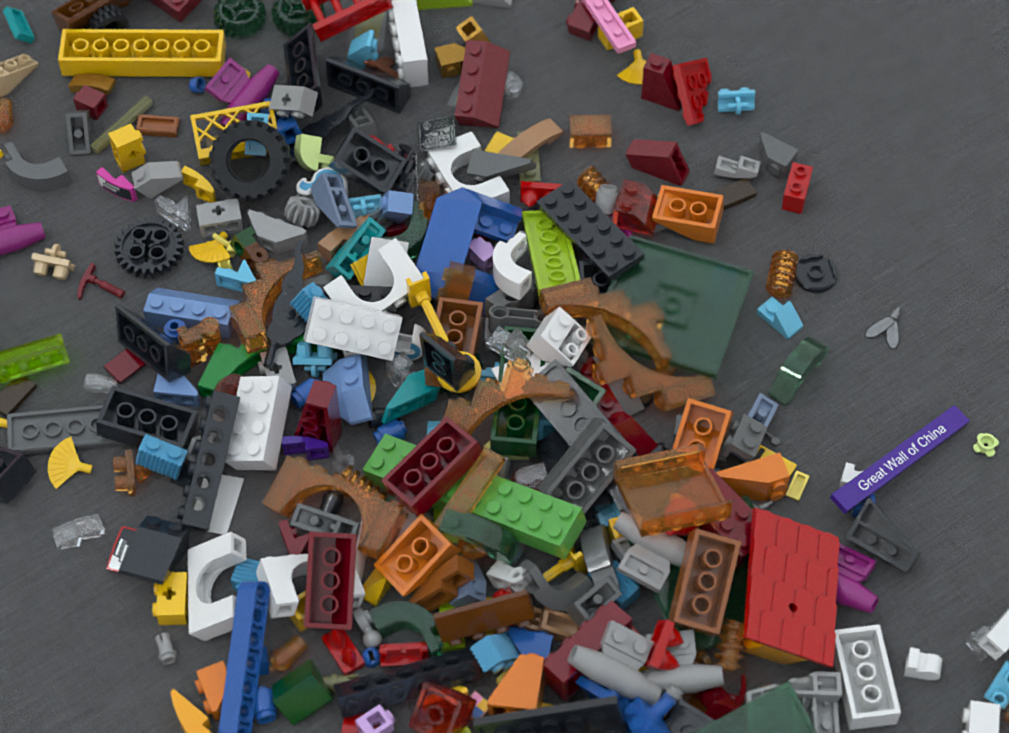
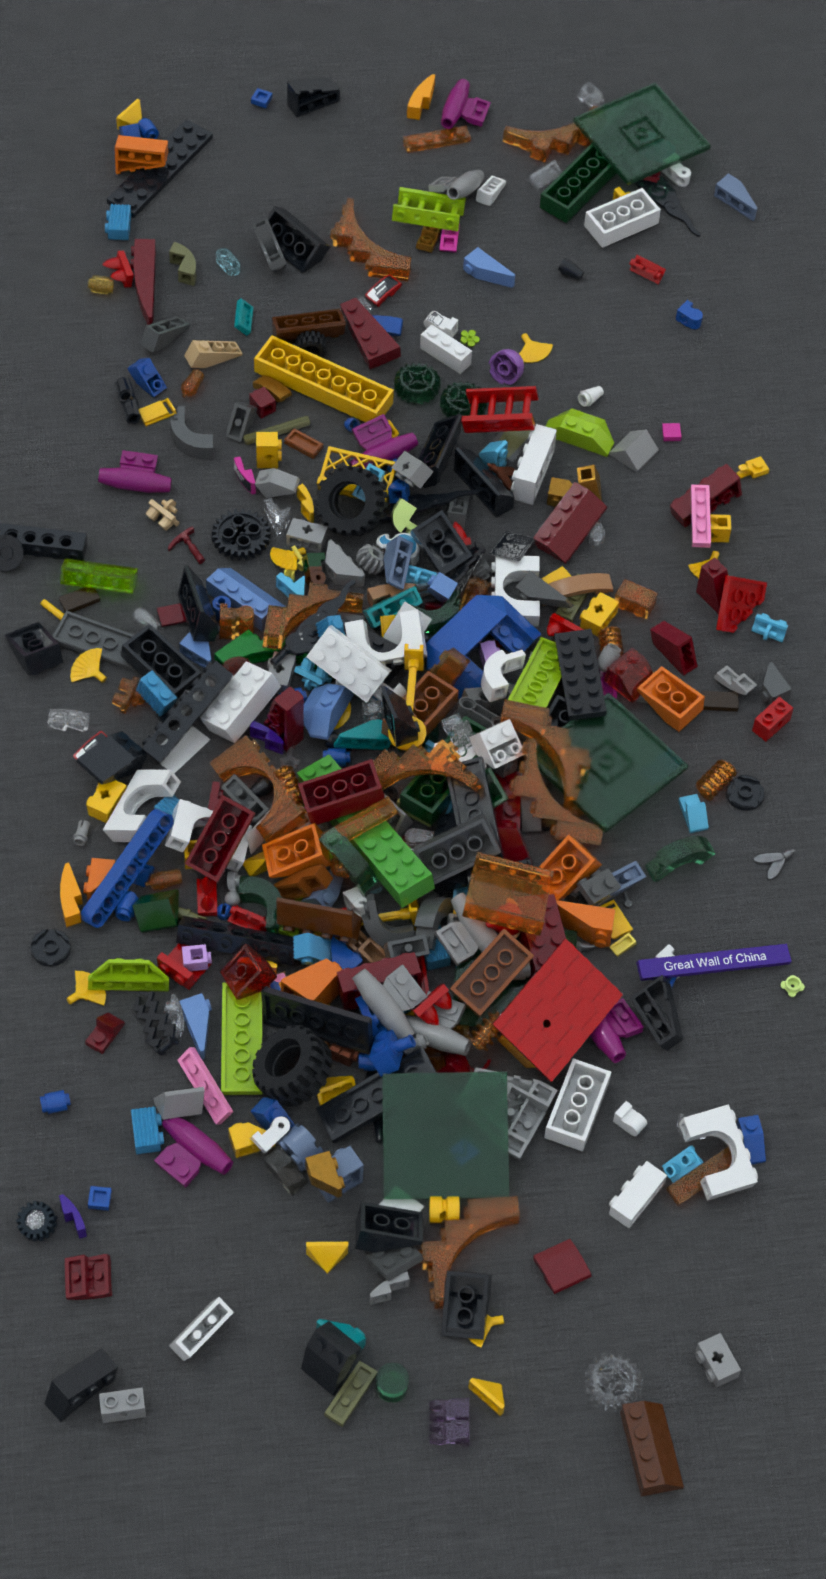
camera: 25 degrees right, 0 degrees up
(564, 161) = (599, 614): none -> yellow brick

